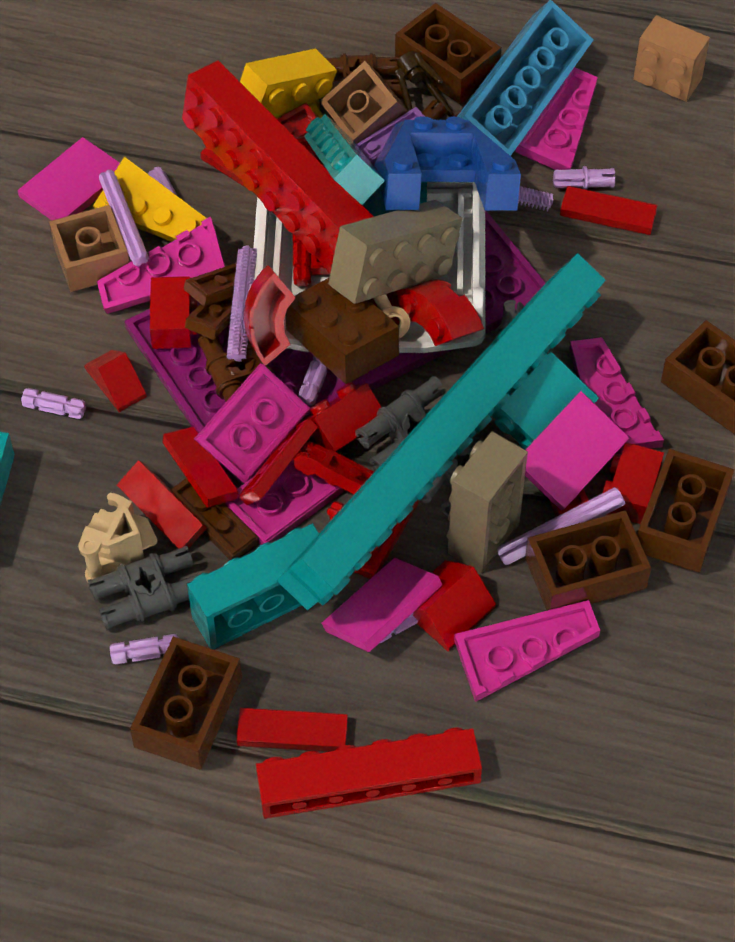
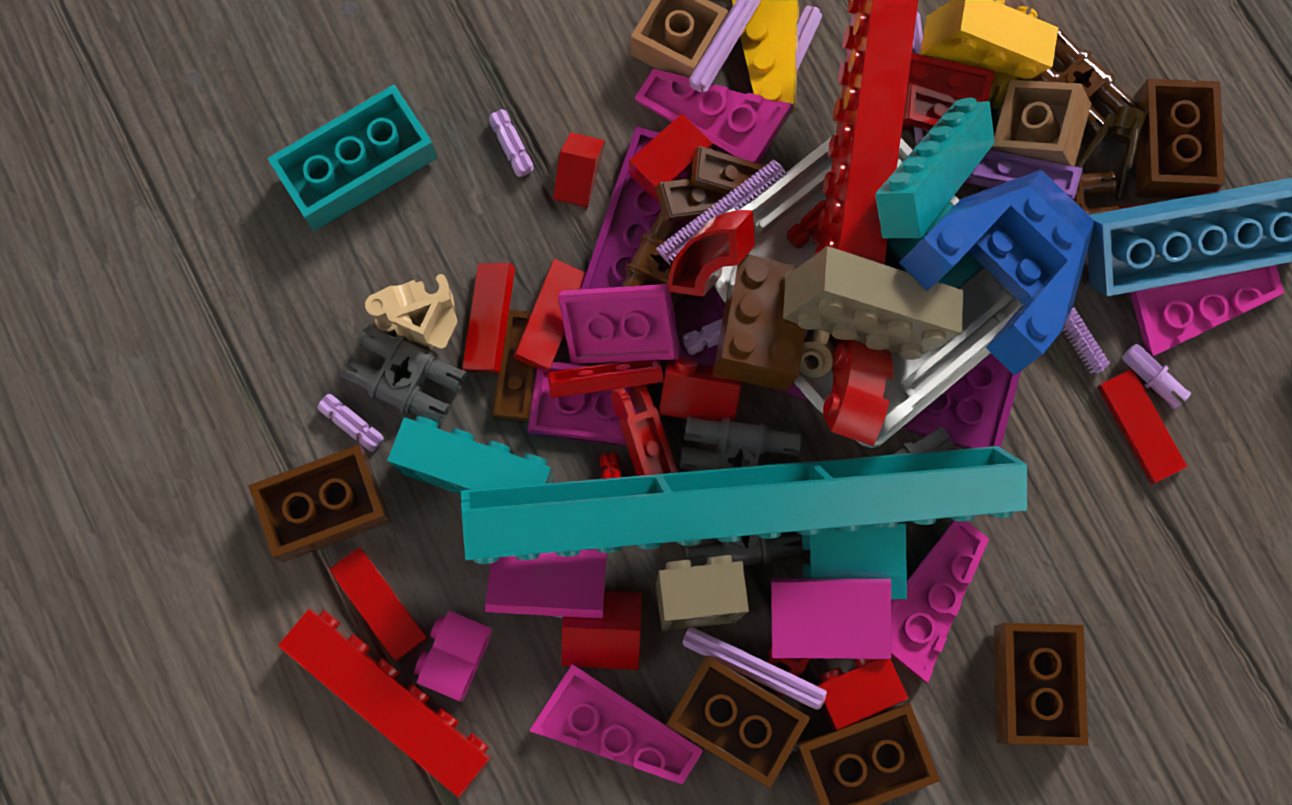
camera: 45 degrees right, 20 degrees up
(377, 704) = (454, 655): none -> dark pink brick

